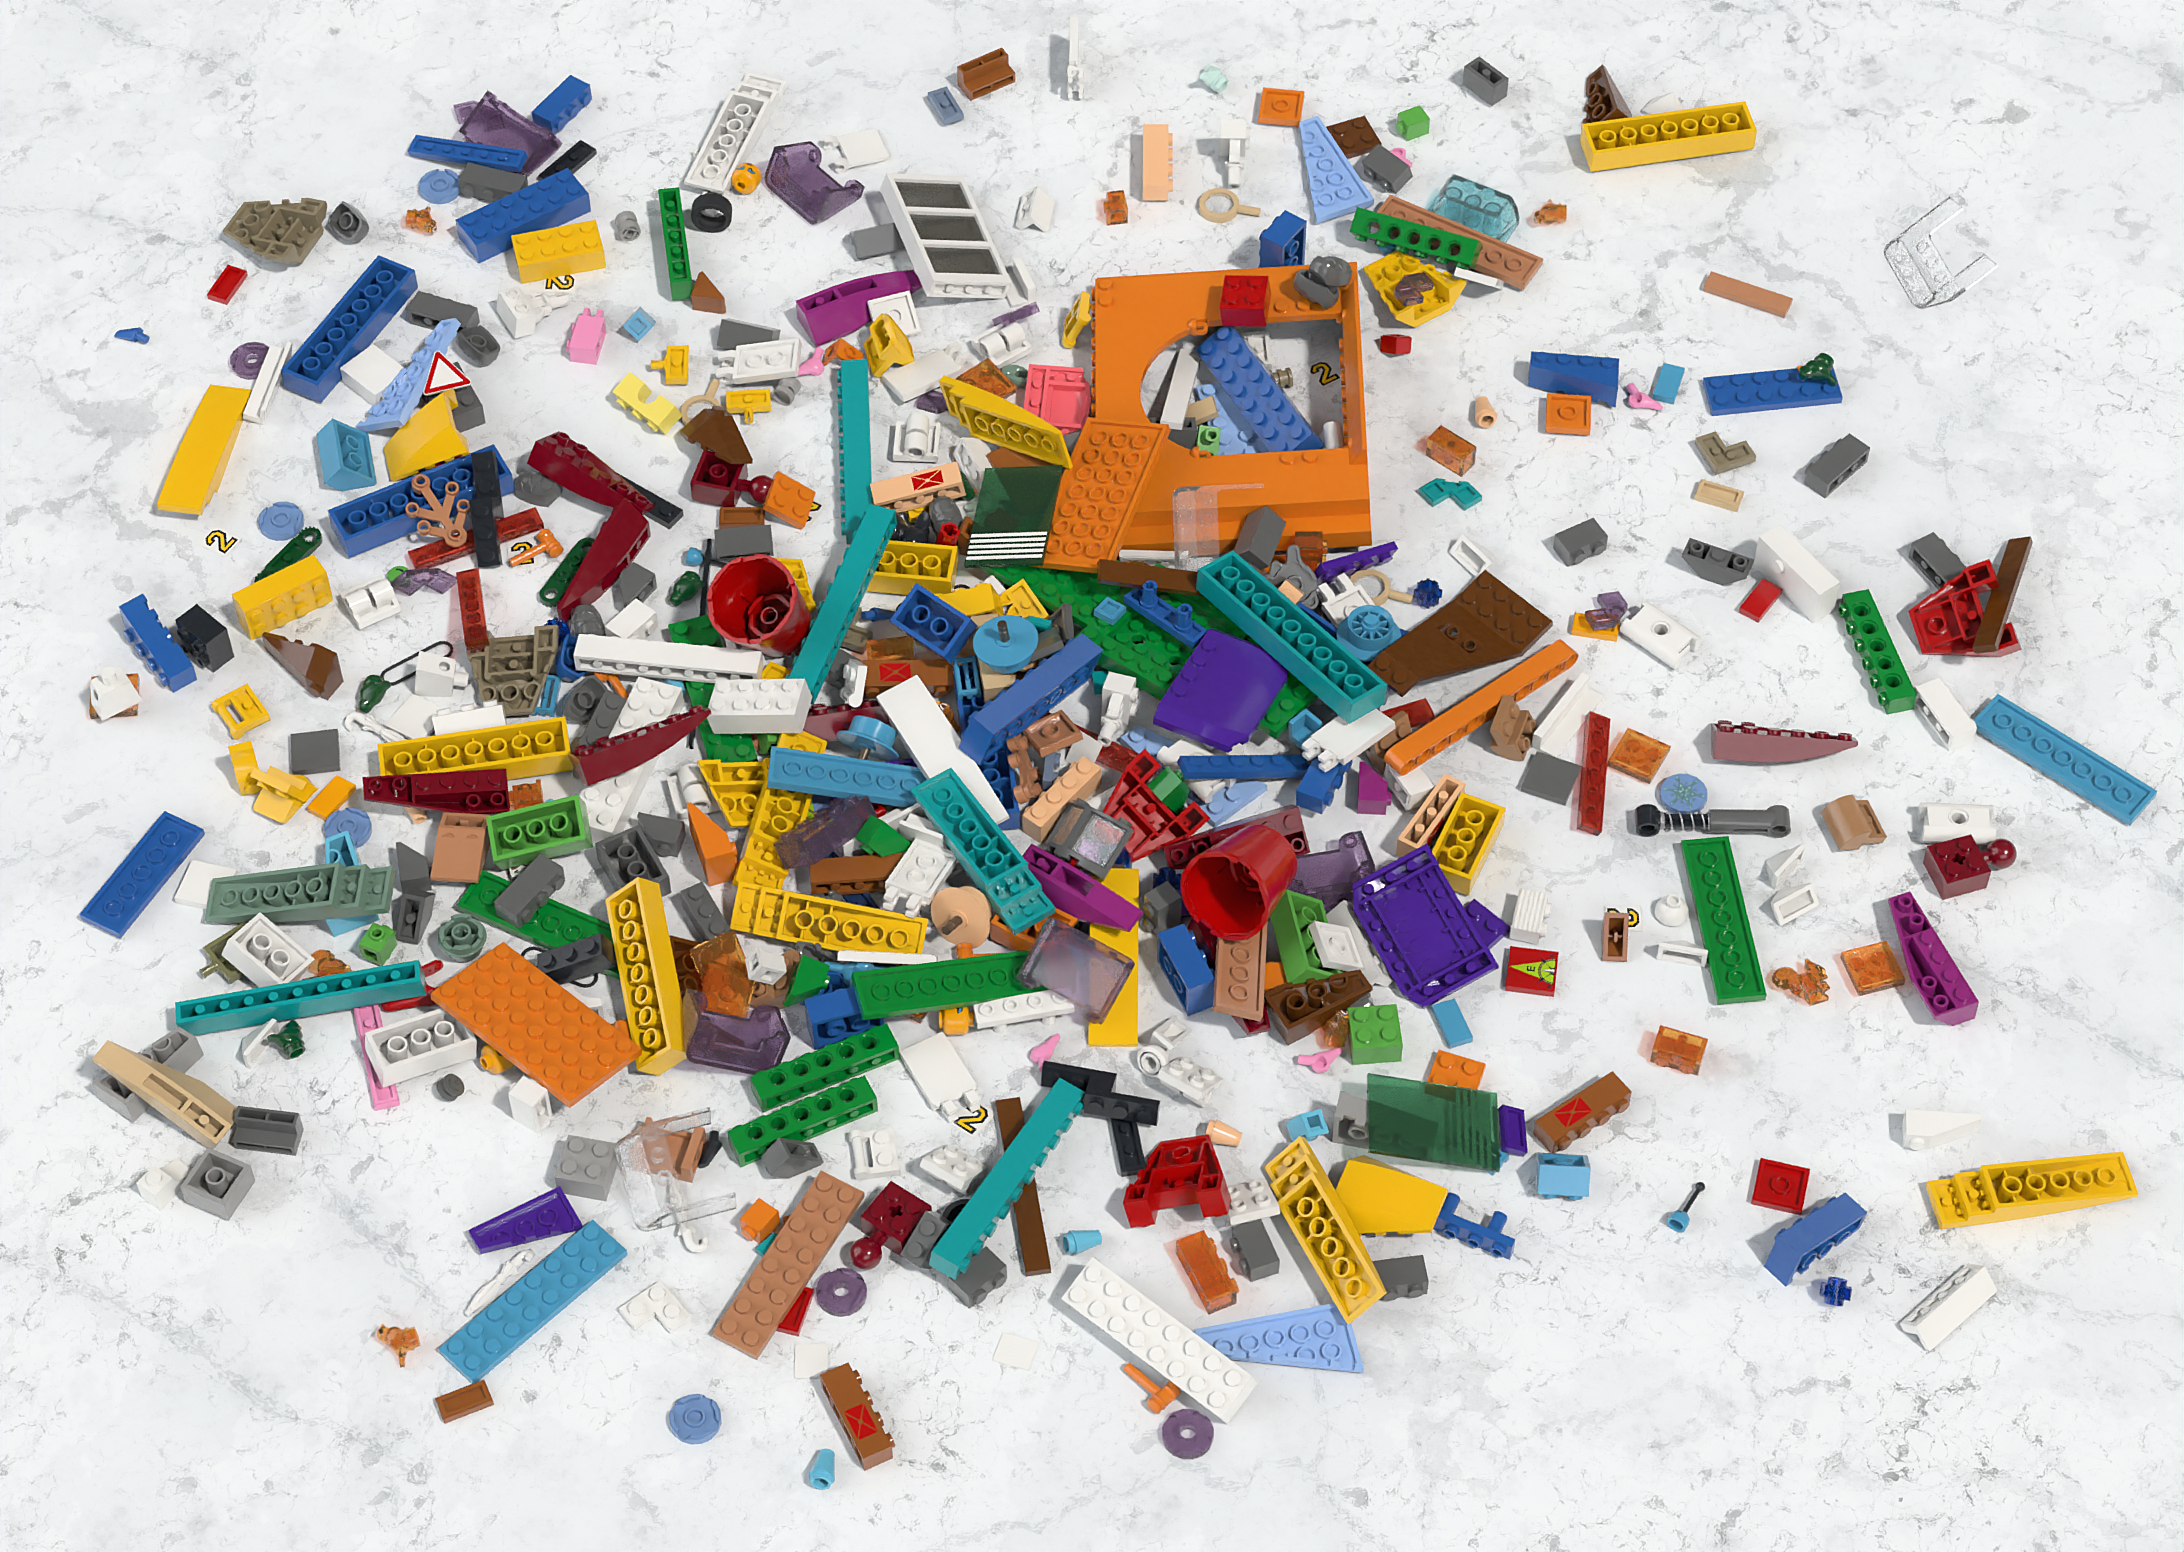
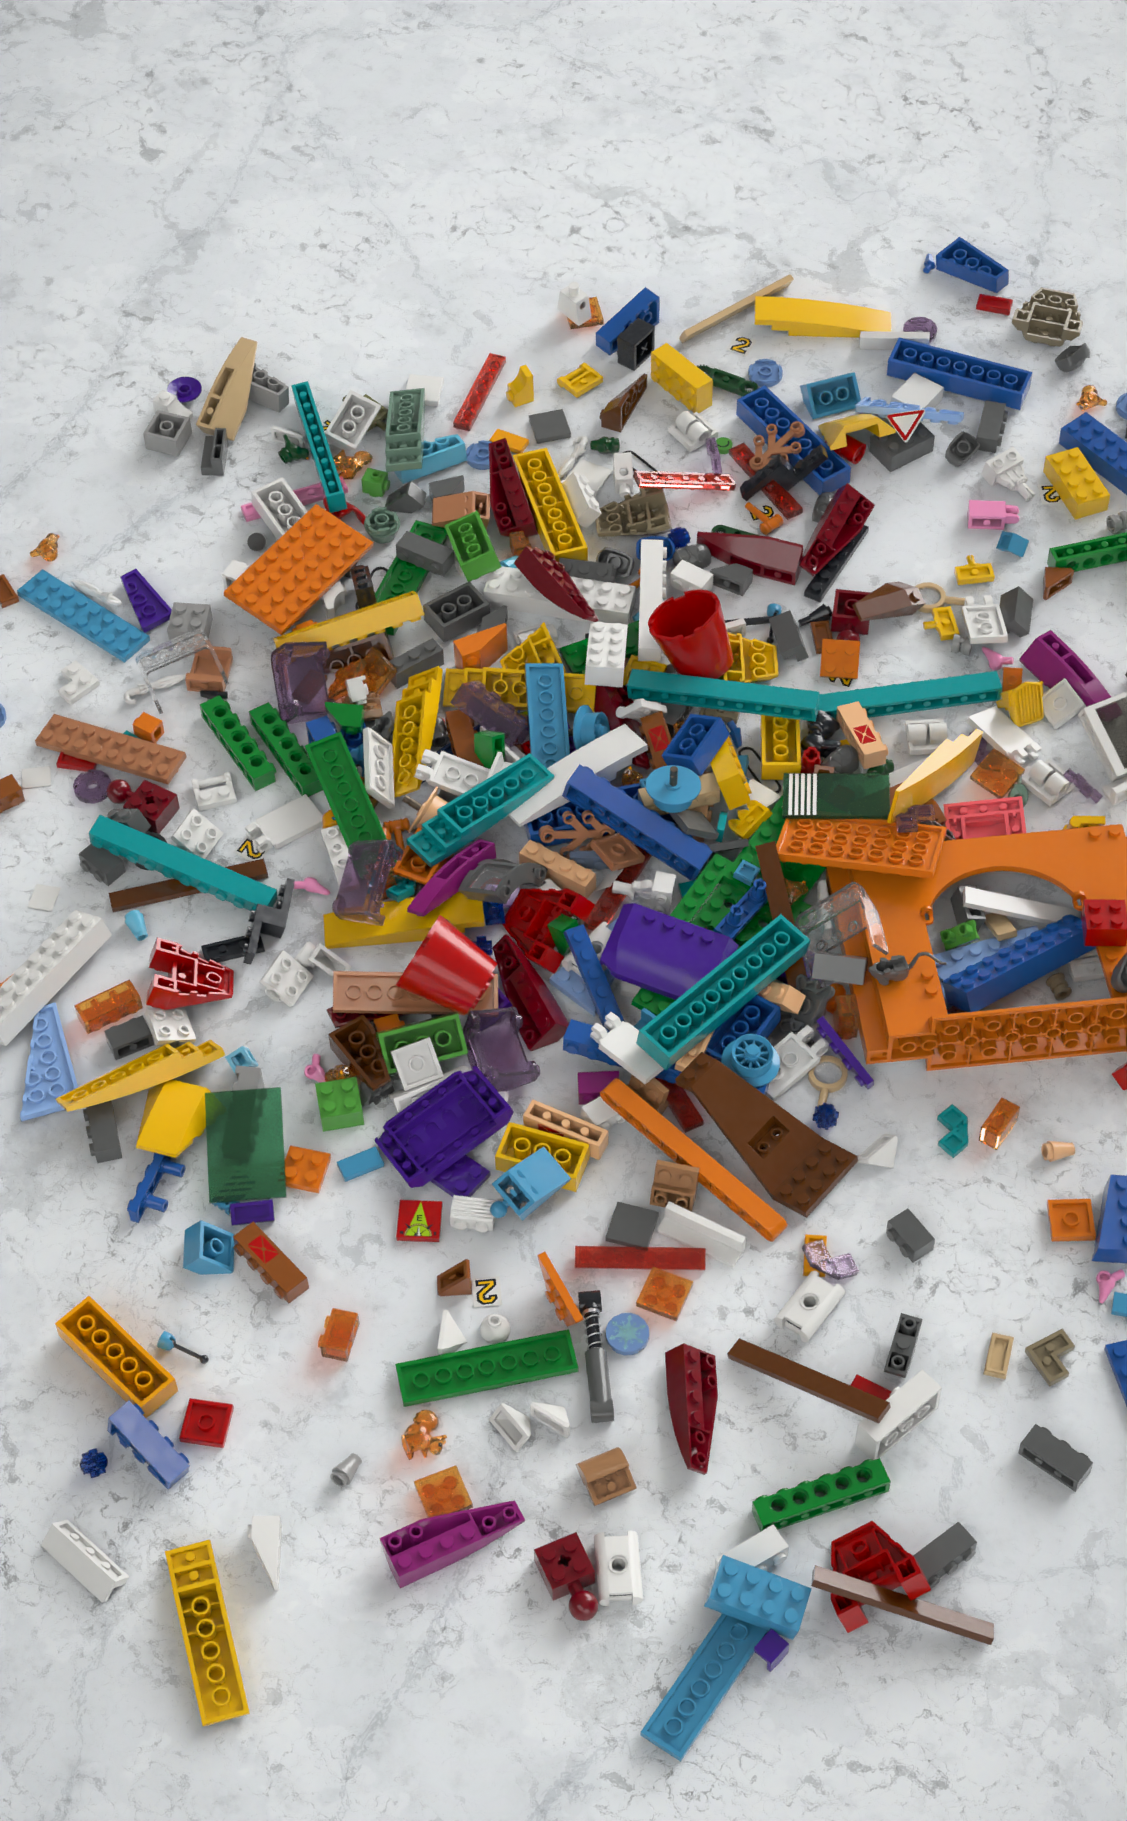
camera: 85 degrees right, 0 degrees up
(125, 1157) = (185, 388): none -> dark purple dish
(142, 874) = (428, 354): blue plate -> none
(160, 533) = (734, 309): none -> tan tile
(162, 289) = (972, 265): none -> blue wedge
(232, 821) = (479, 392): none -> clear red plate
(281, 793) = (507, 410): yellow piece -> none
(544, 710) = (626, 543): dark azure tile -> none
(659, 414) = (915, 565): light yellow arch -> none
(685, 588) = (738, 609): dark green animal -> none
(710, 511) = (822, 613): none -> black cone
(790, 1158) = (204, 740): dark grey slope -> none
(1078, 449) = (908, 821): none -> tile
(1186, 969) = (388, 956): blue brick -> none
(1222, 1133) = (239, 1005): light nougat cone -> none
(1286, 475) = (896, 968): none -> dark grey animal
(1511, 848) = (533, 1183): none -> dark azure slope
(1650, 837) = (557, 1293): none -> orange wing
(1704, 1264) = (116, 1356): none -> light orange brick
(1758, 637) = (809, 1380): none -> reddish brown tile
(1845, 1054) = (345, 1471): none -> light grey cone
(1999, 703) = (758, 1597): none -> dark azure brick
(2045, 705) = (772, 1649): none -> dark purple panel

